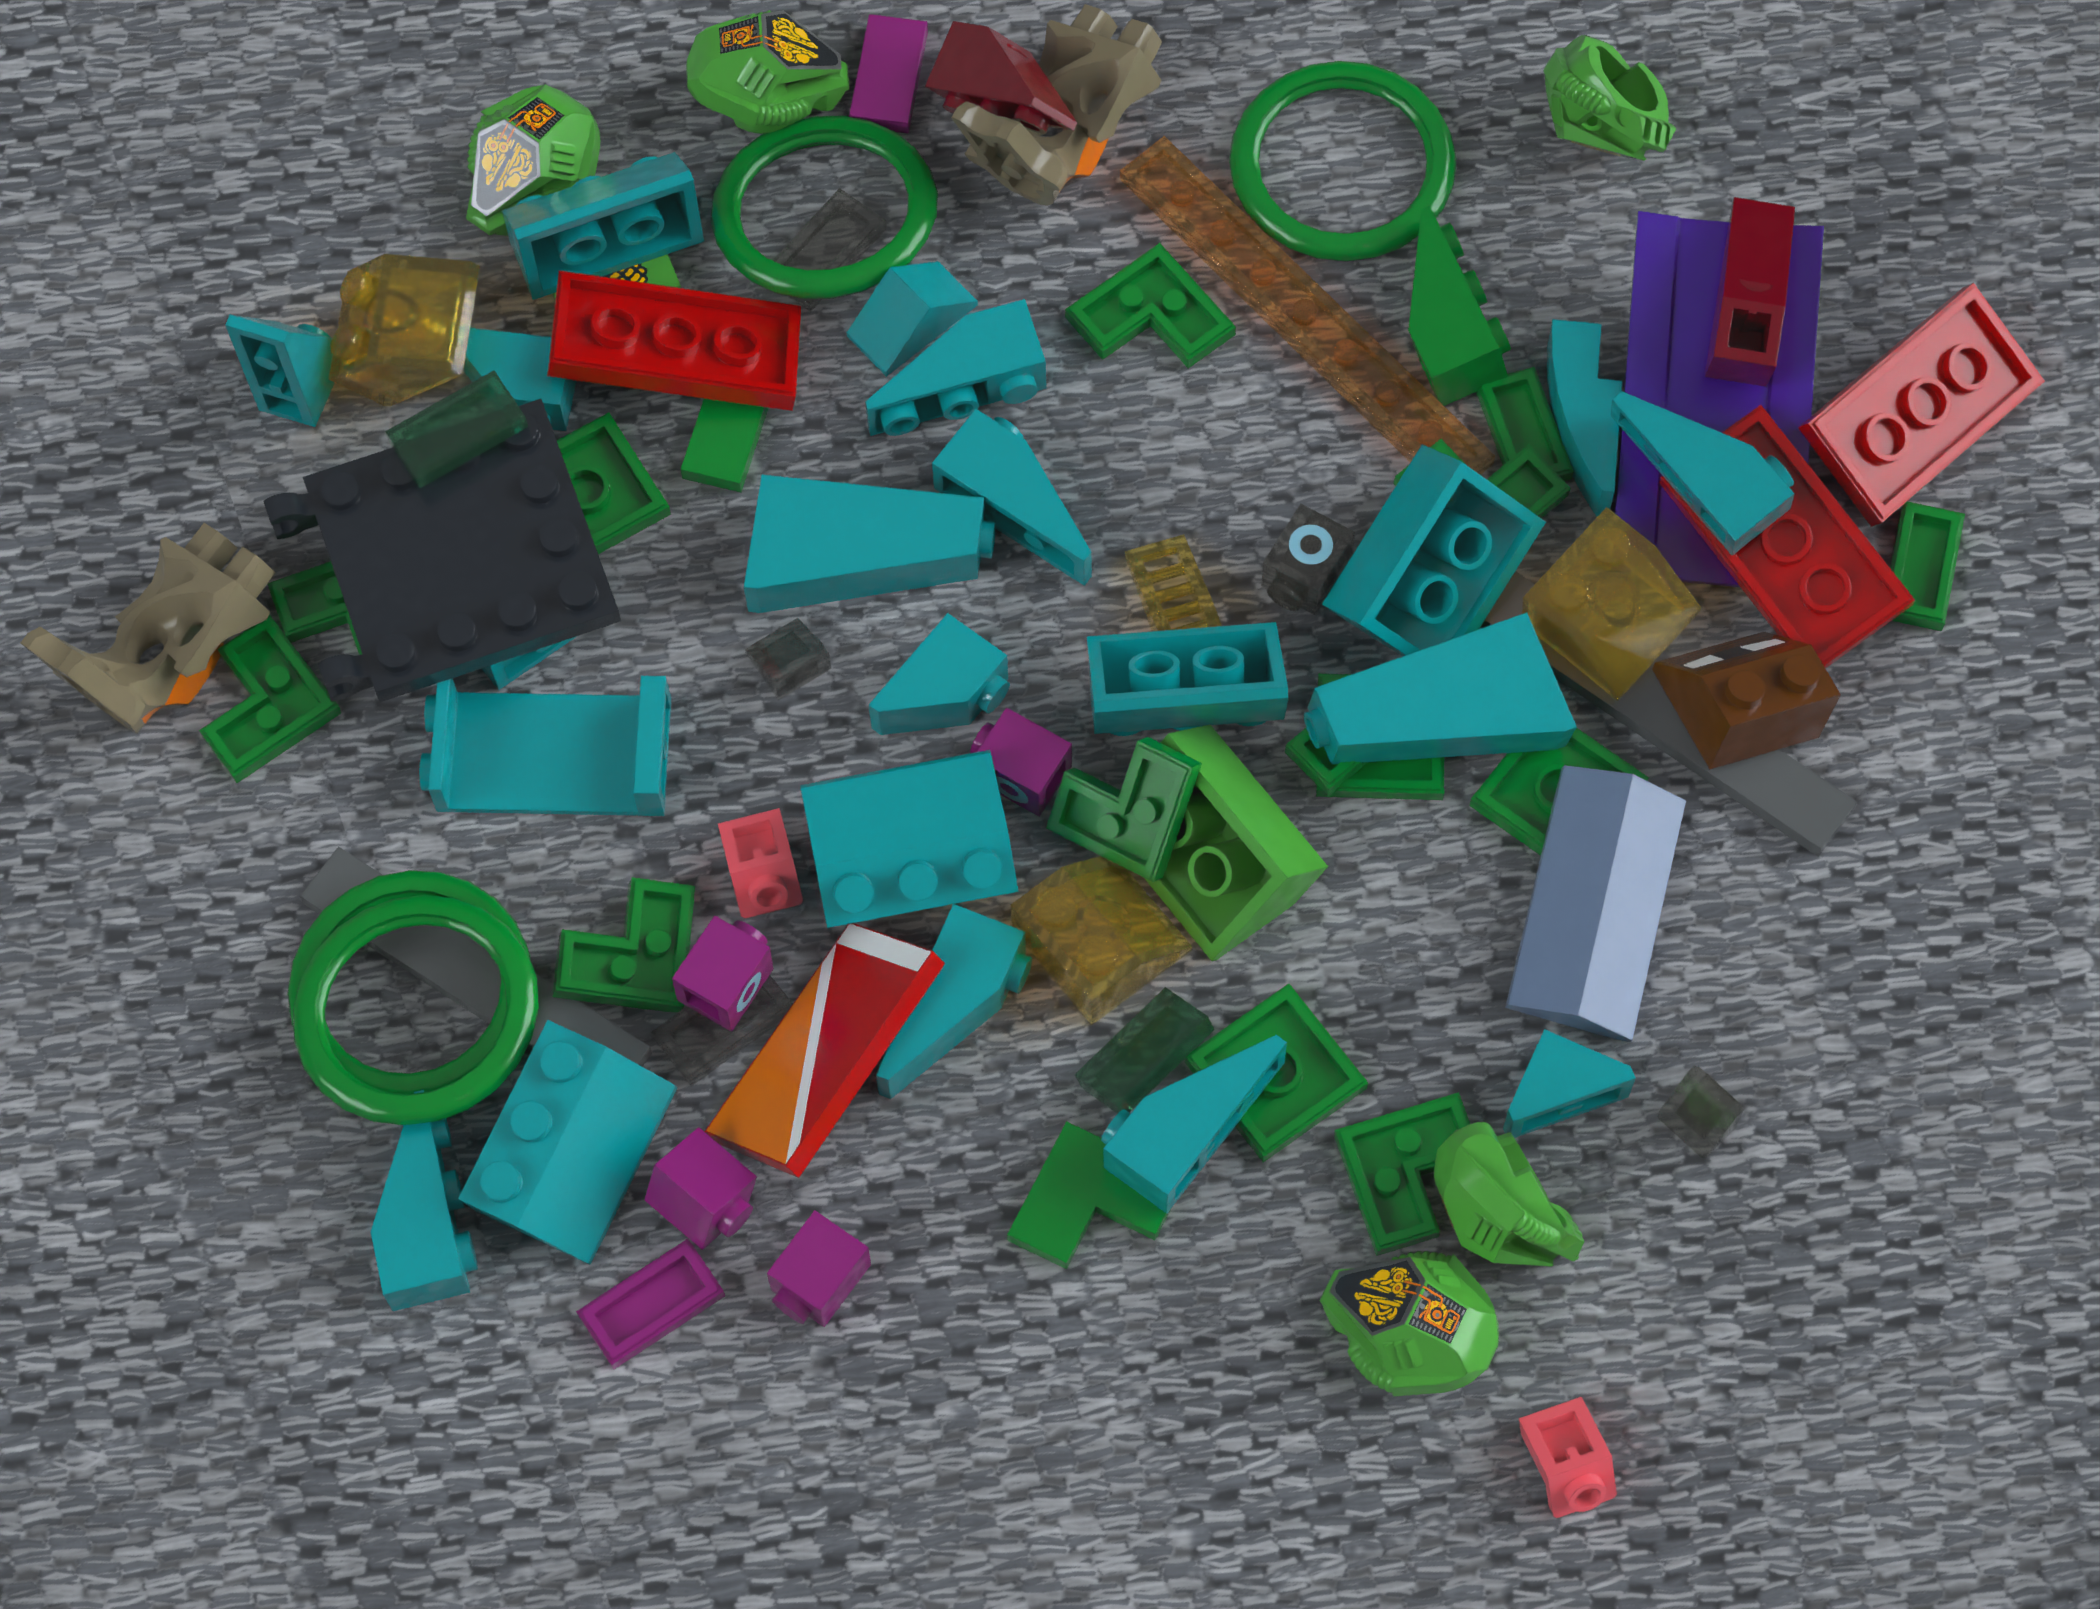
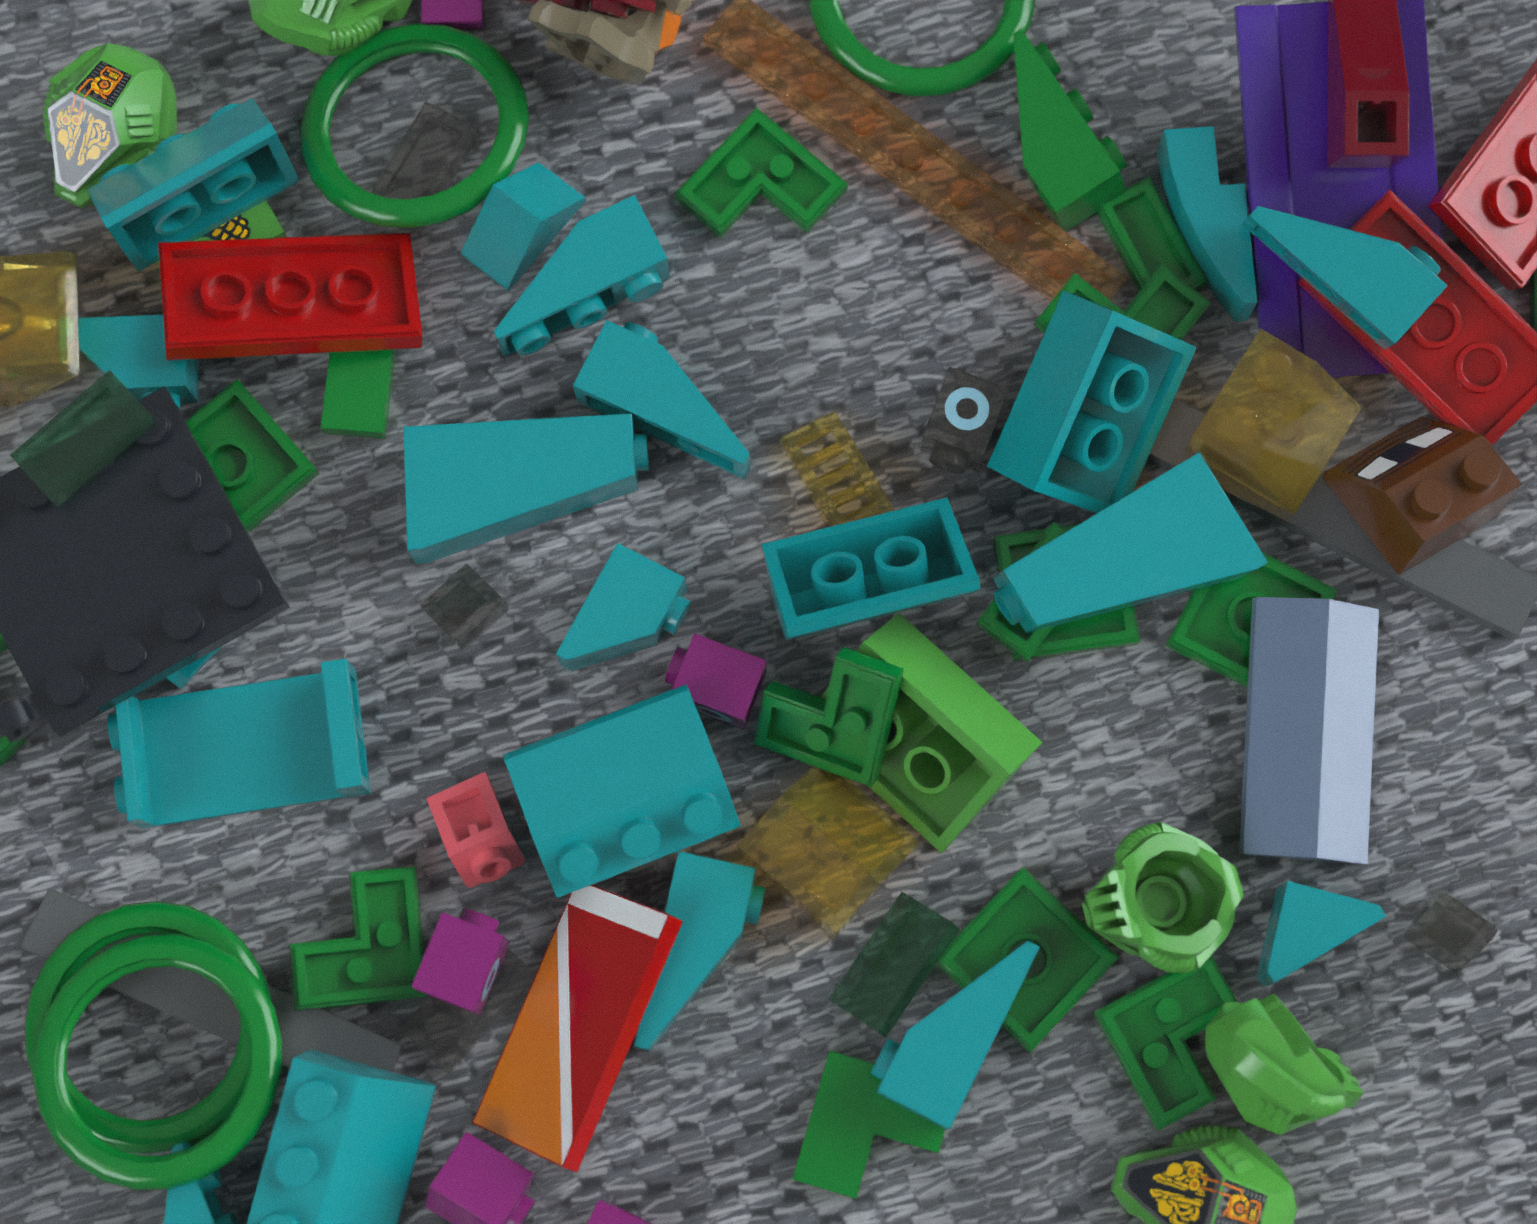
camera: 10 degrees left, 10 degrees up
(1419, 1026) = (1165, 898): none -> bright green helmet

